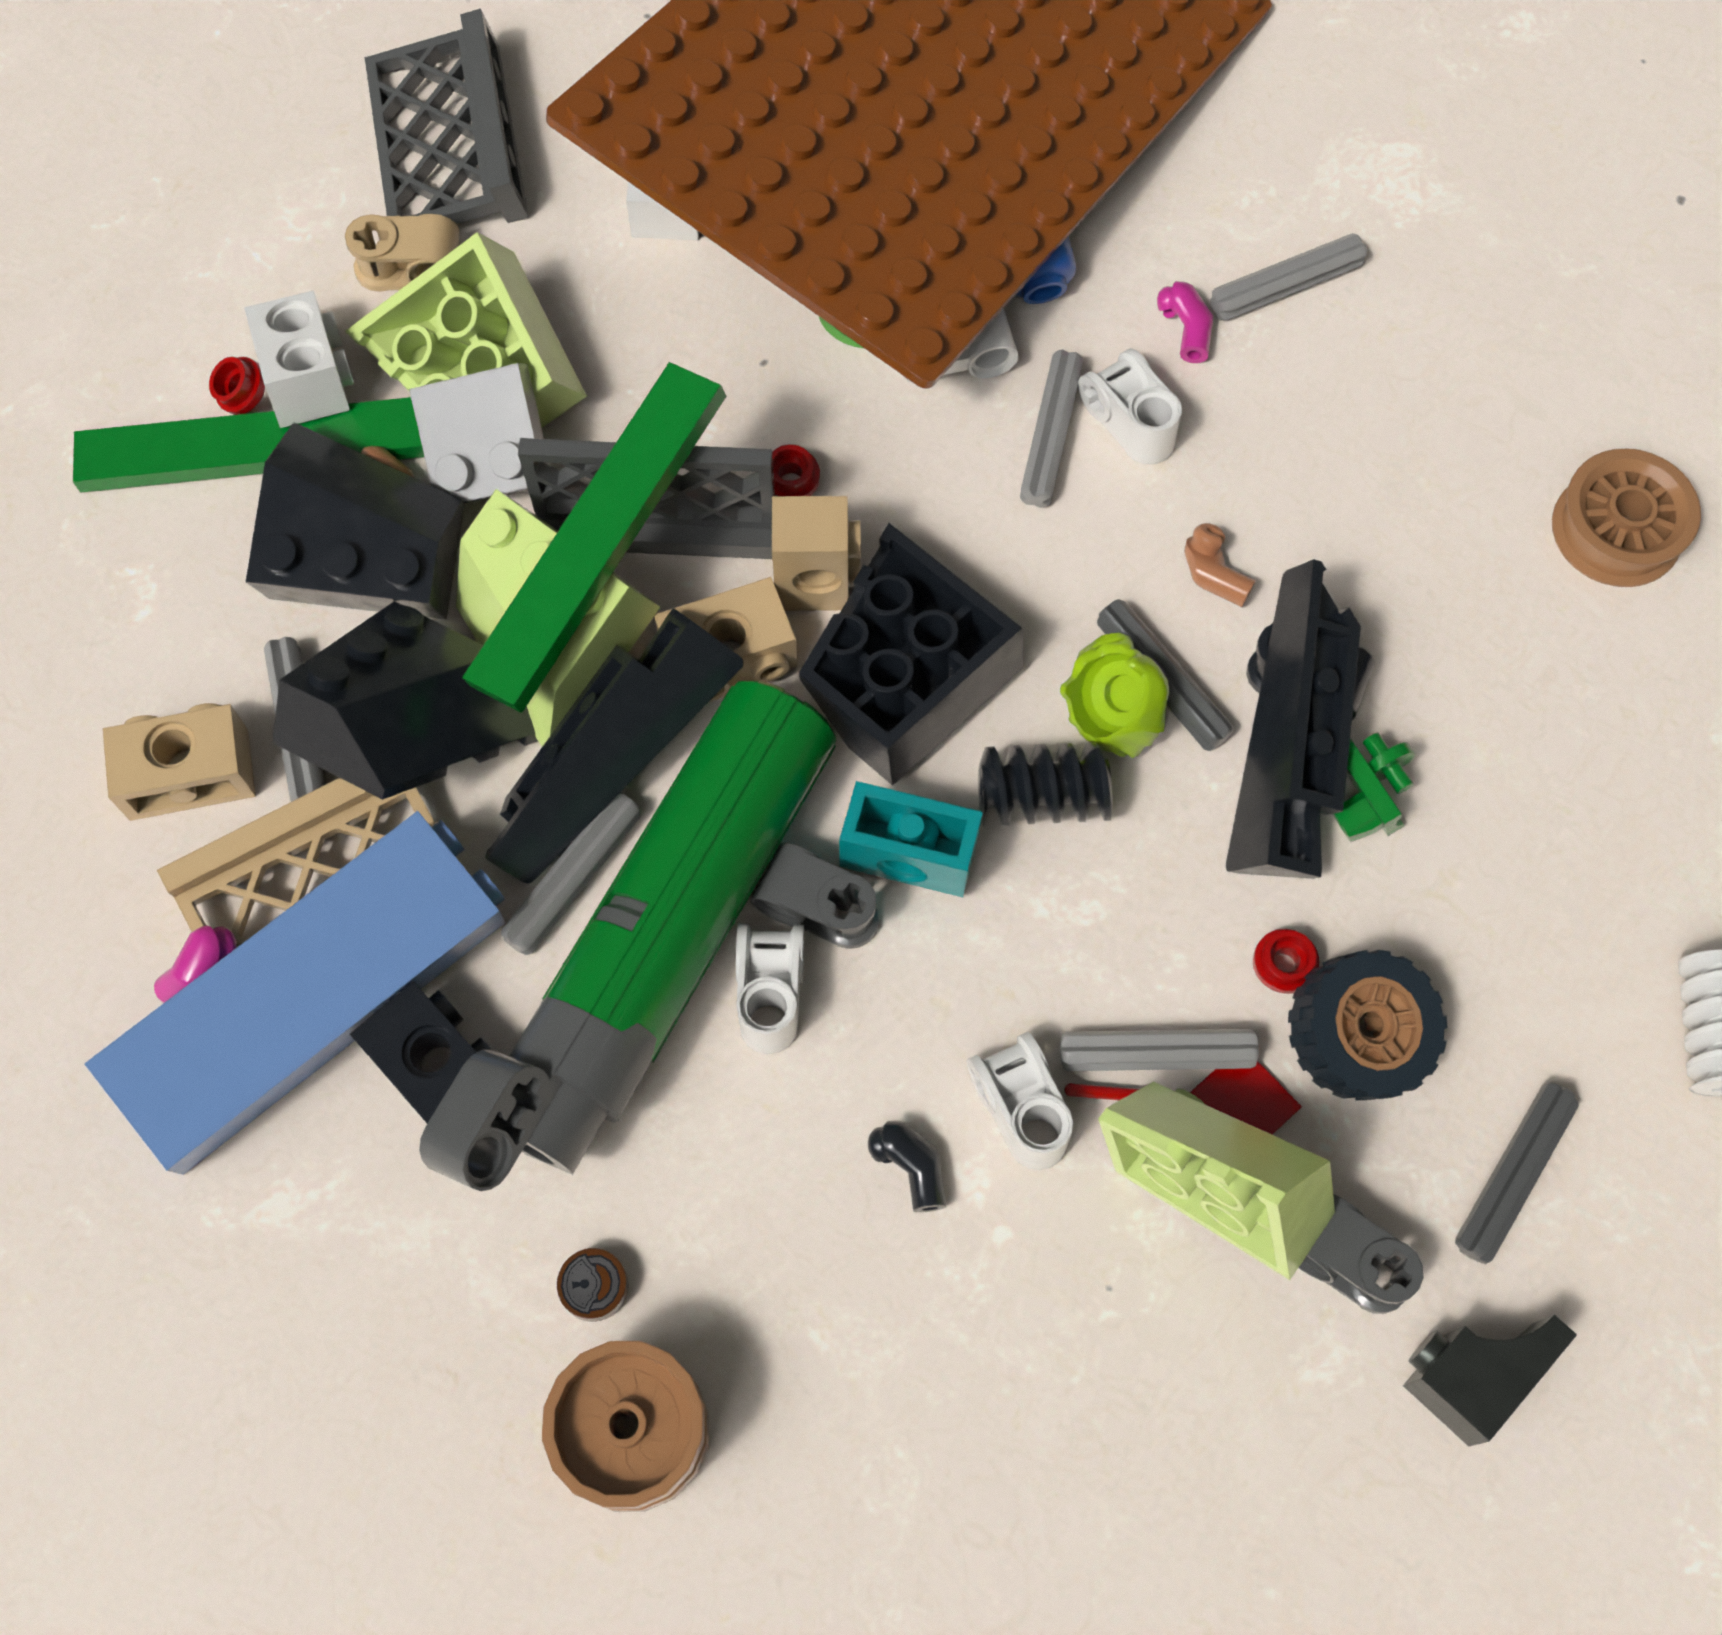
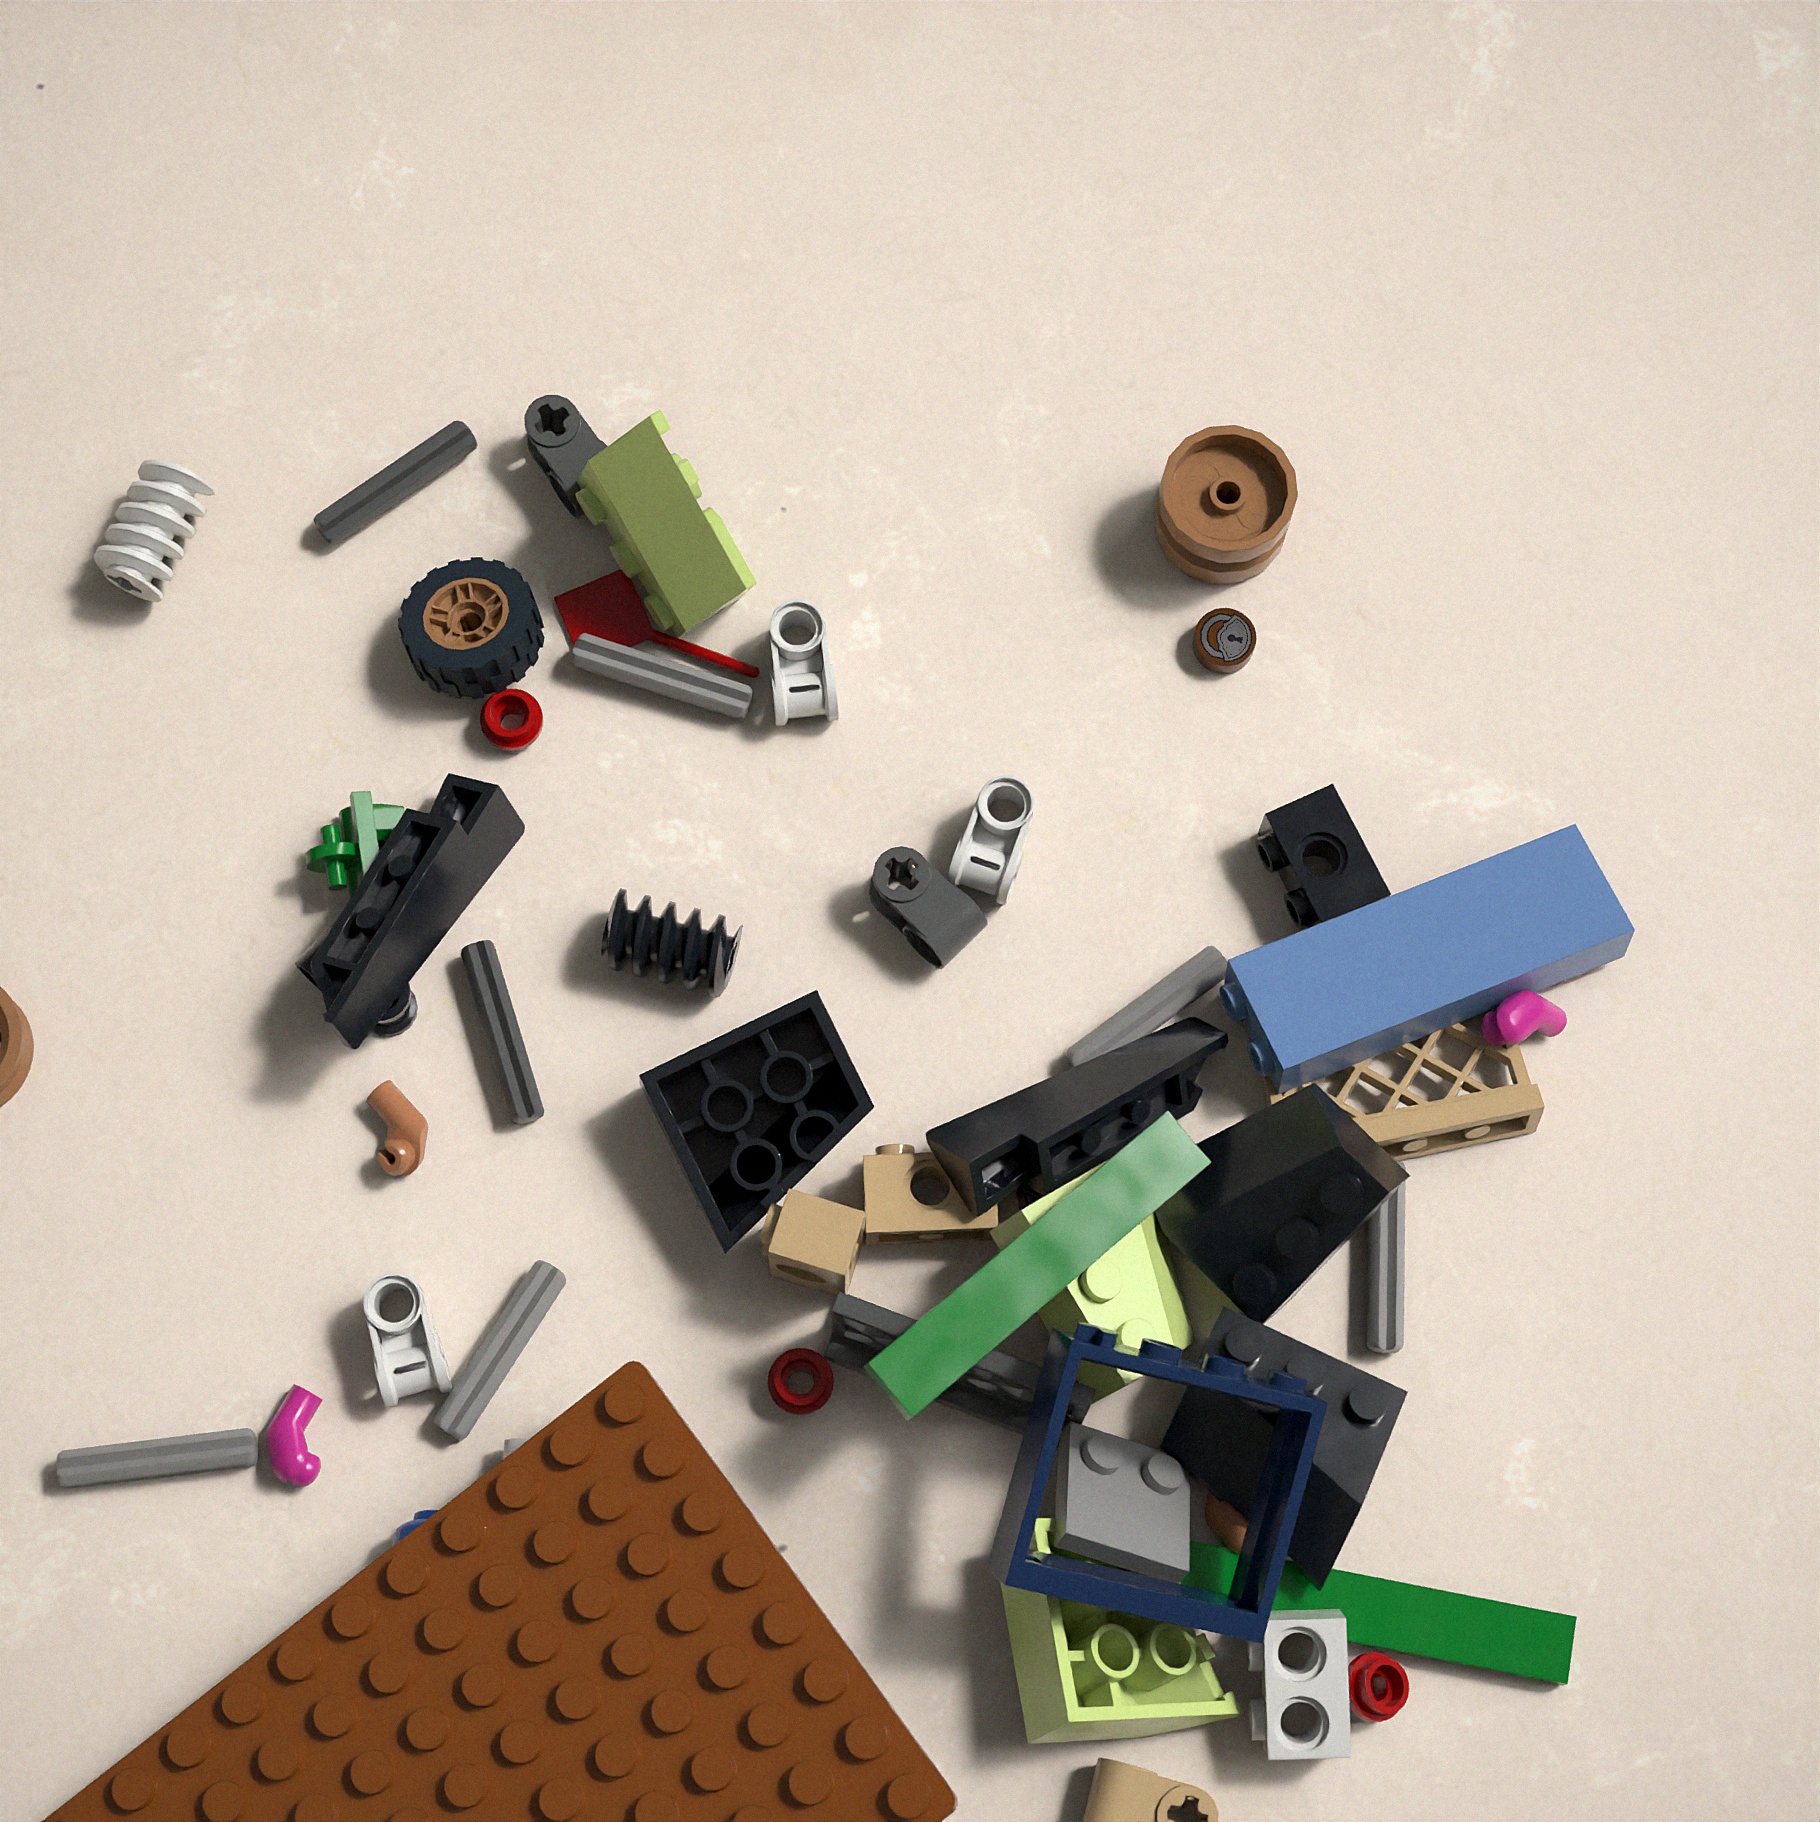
camera: 165 degrees left, 5 degrees up
(211, 773) = (1543, 1224): tan brick -> none
(424, 347) = (1248, 1605): none -> dark blue window
(640, 948) = (1093, 901): green piece -> none
(909, 839) = (820, 921): teal brick -> none
(916, 1156) = (913, 656): black arm -> none
(1116, 696) = (565, 1011): lime hair -> none
(1481, 1381) = (504, 333): pearl dark grey arch -> none

